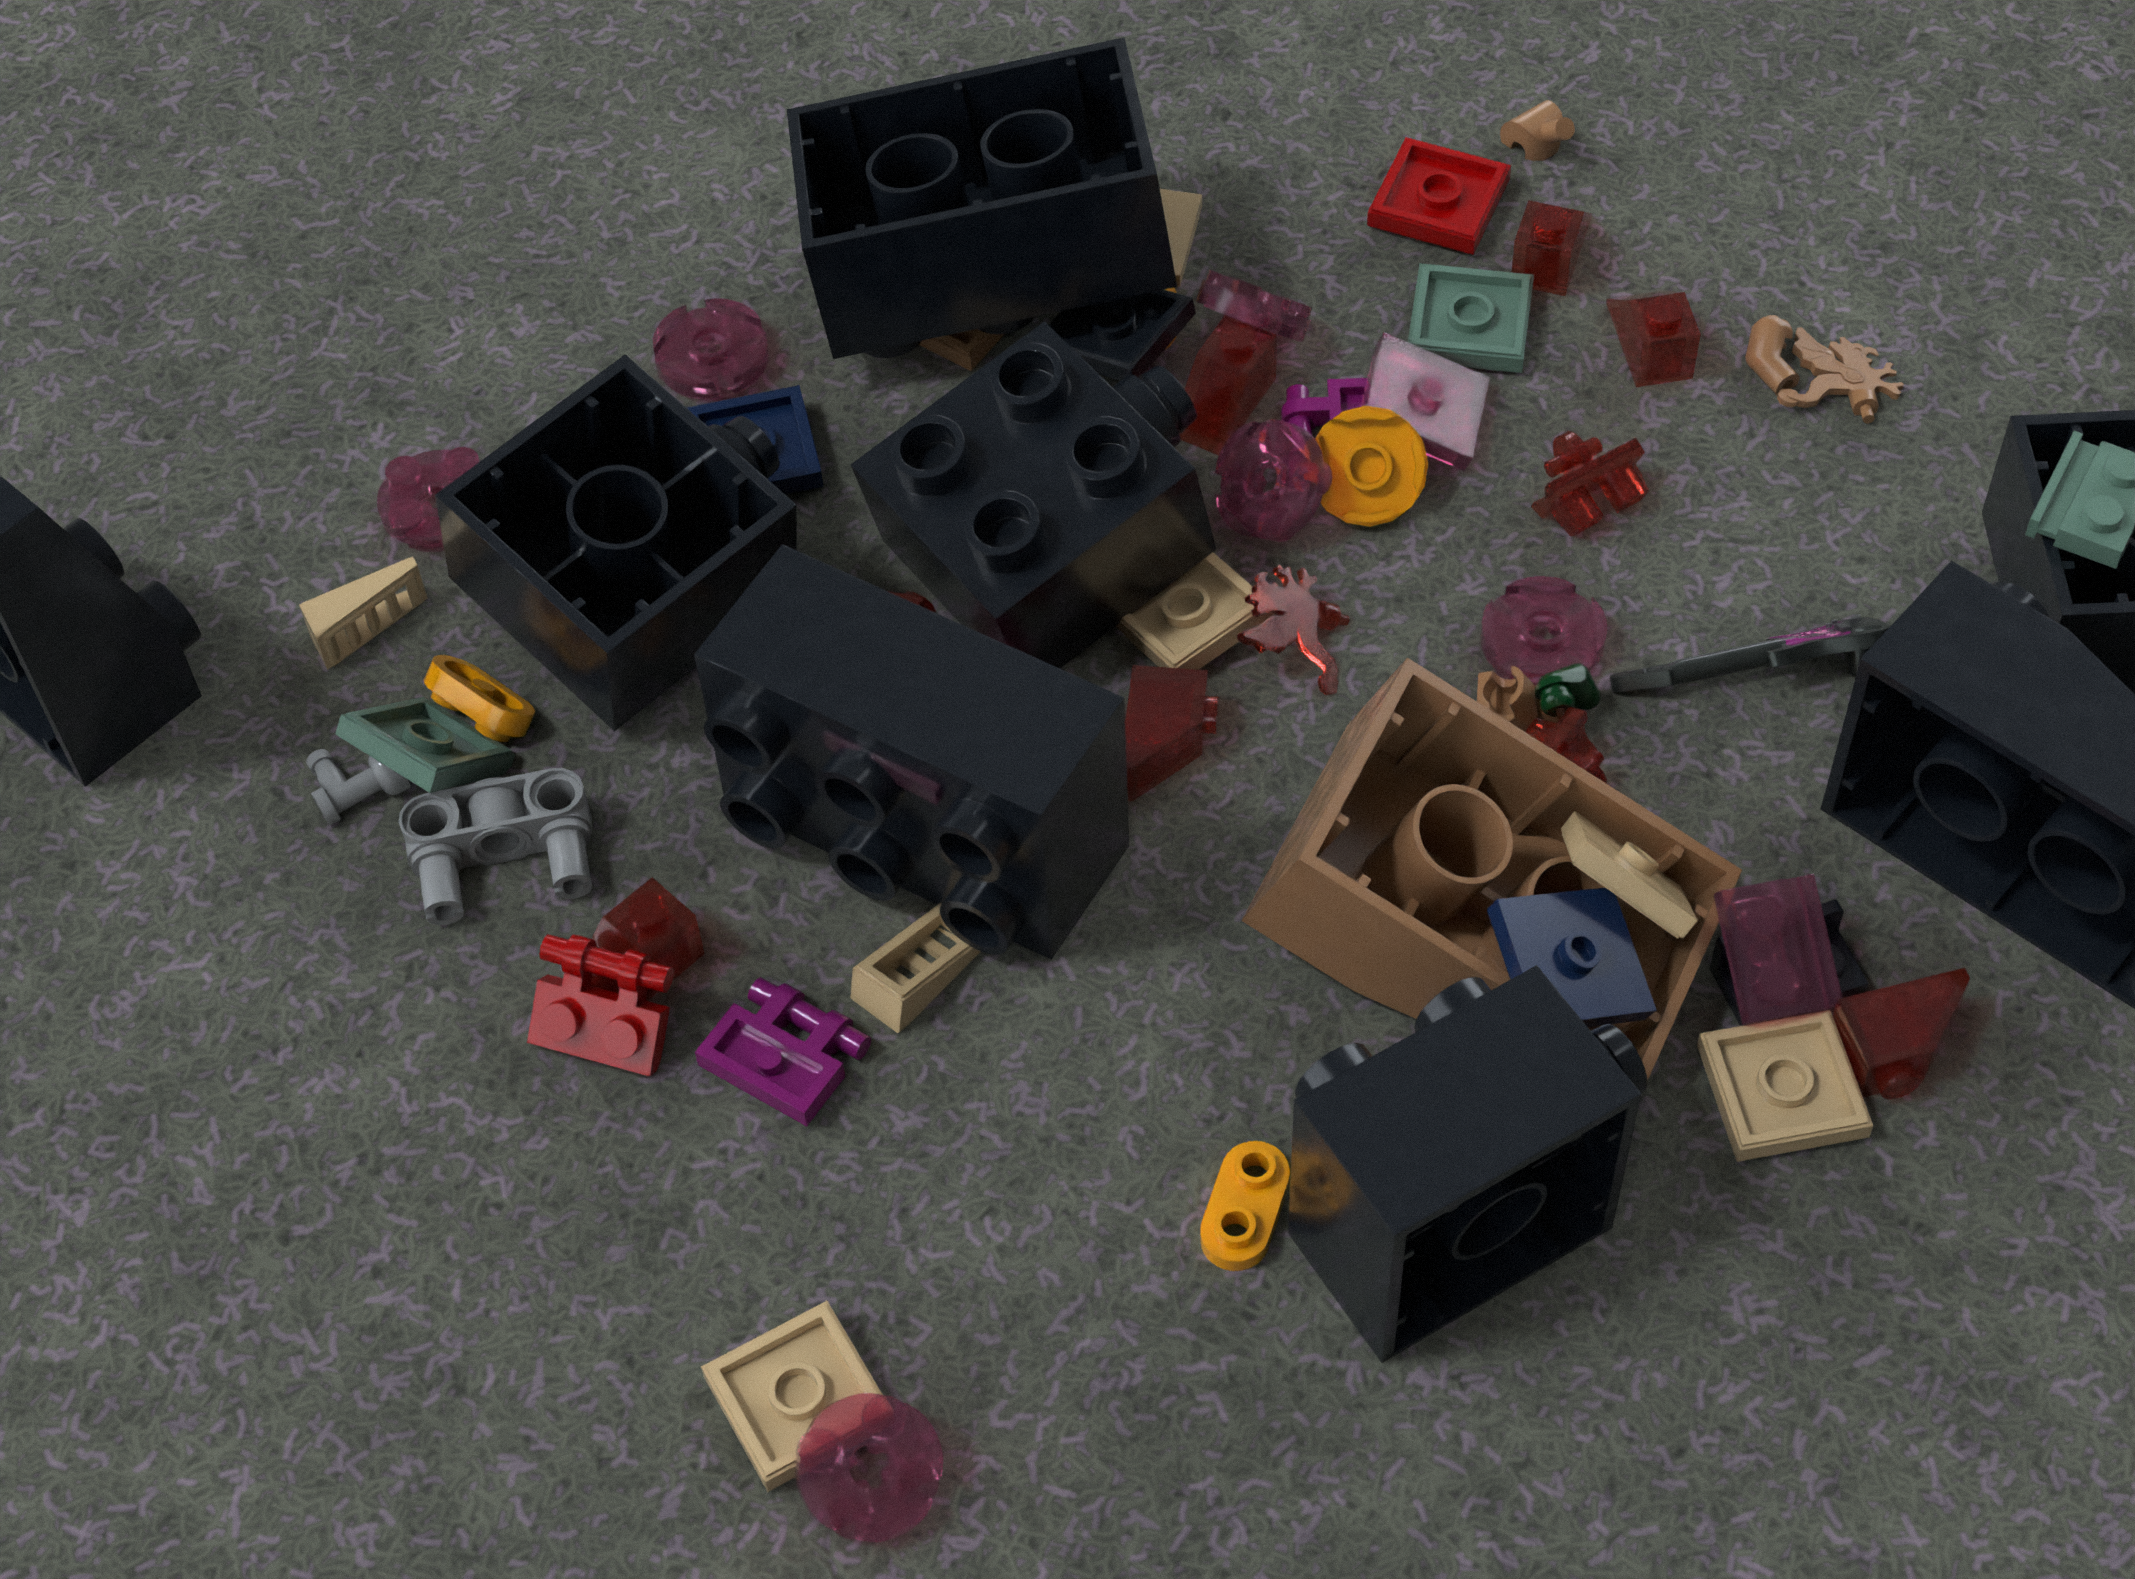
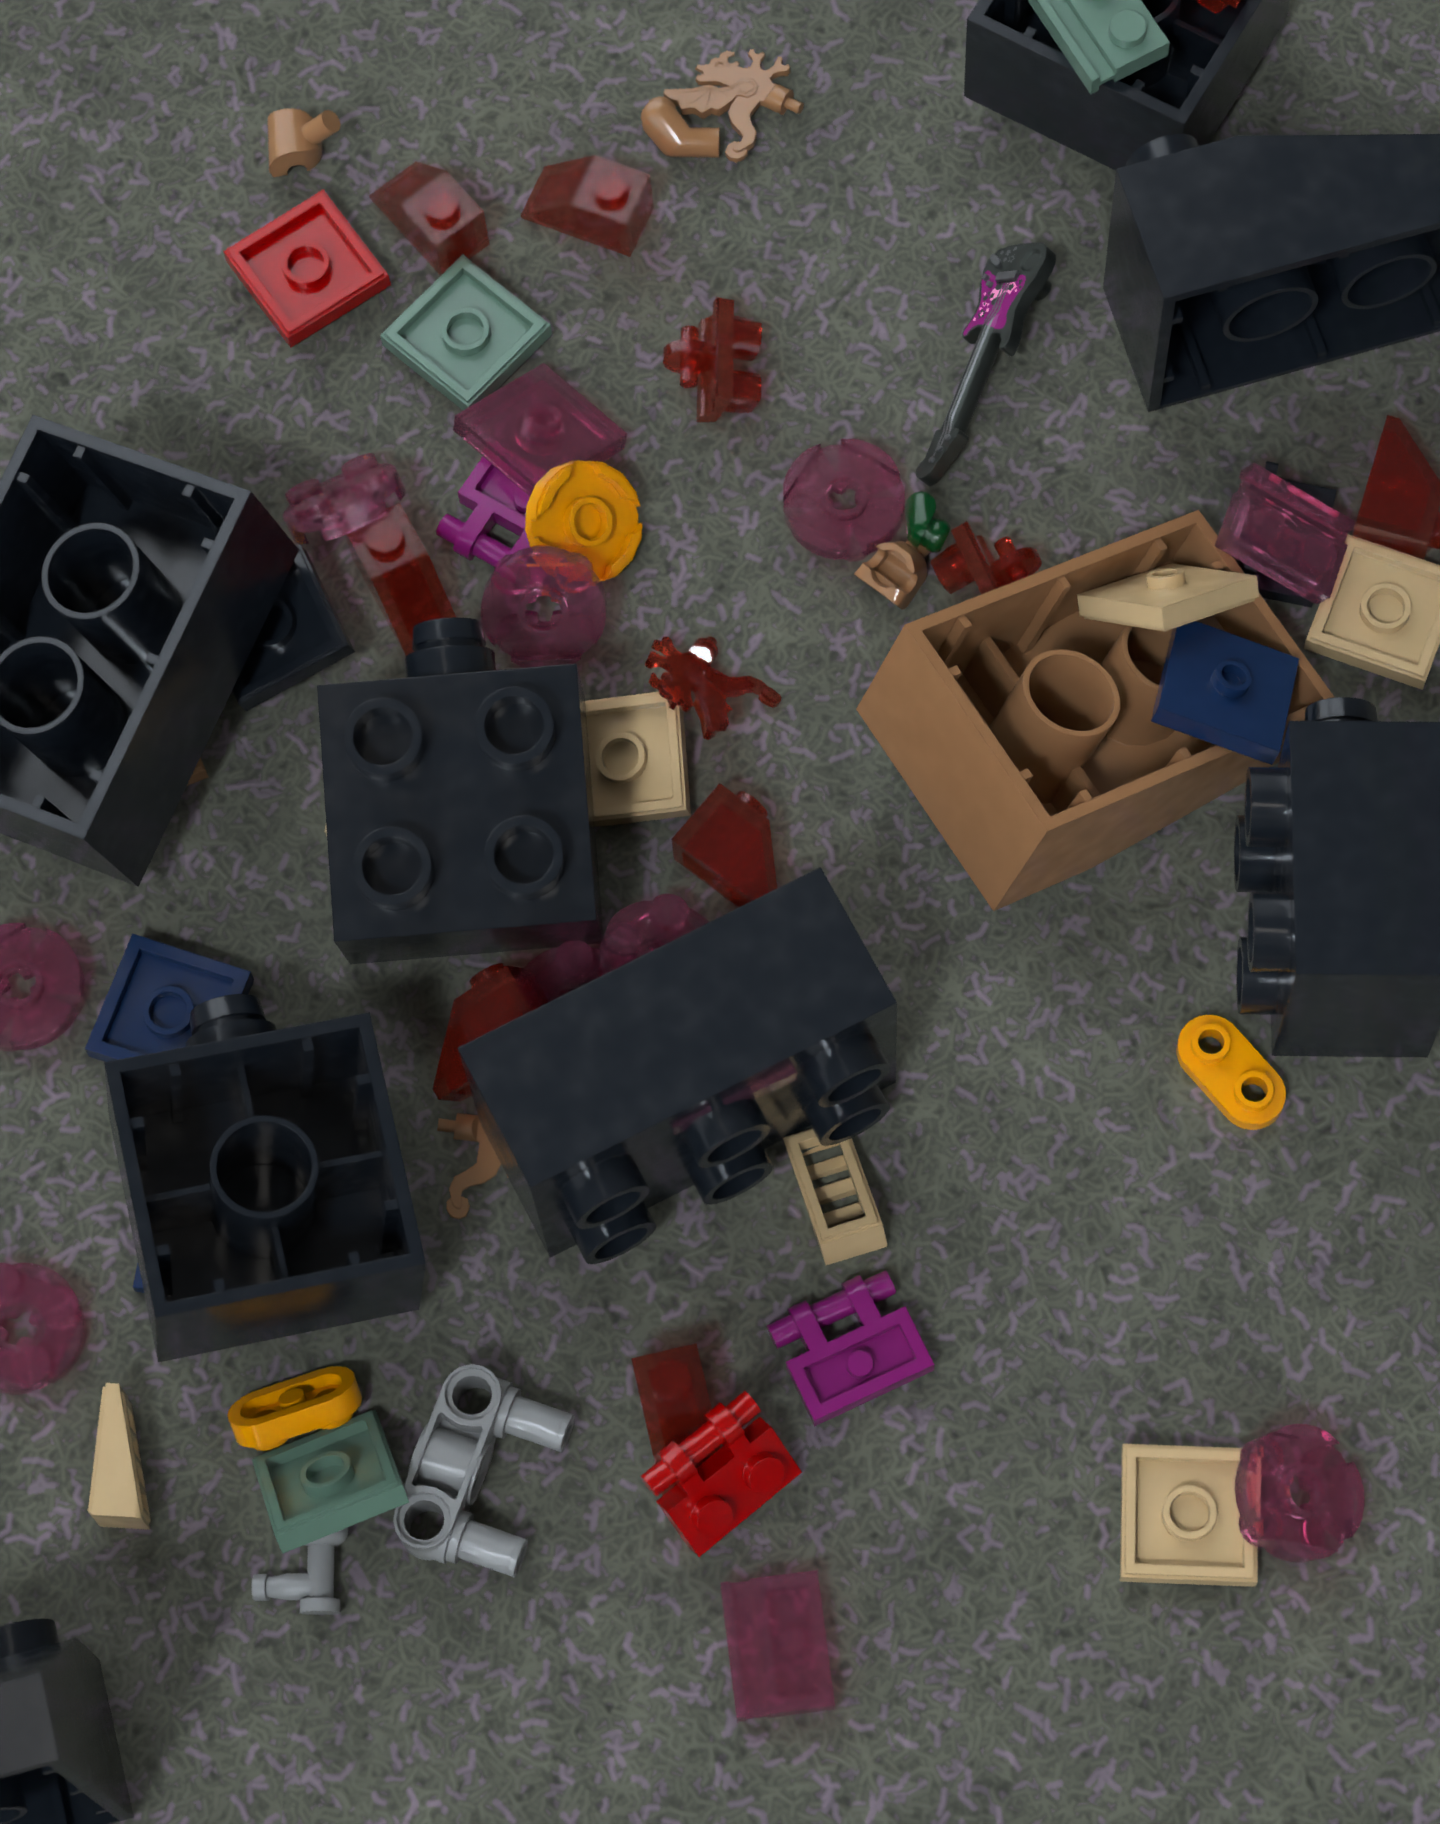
camera: 55 degrees left, 15 degrees up
(480, 1139) = (777, 1646): none -> clear pink plate

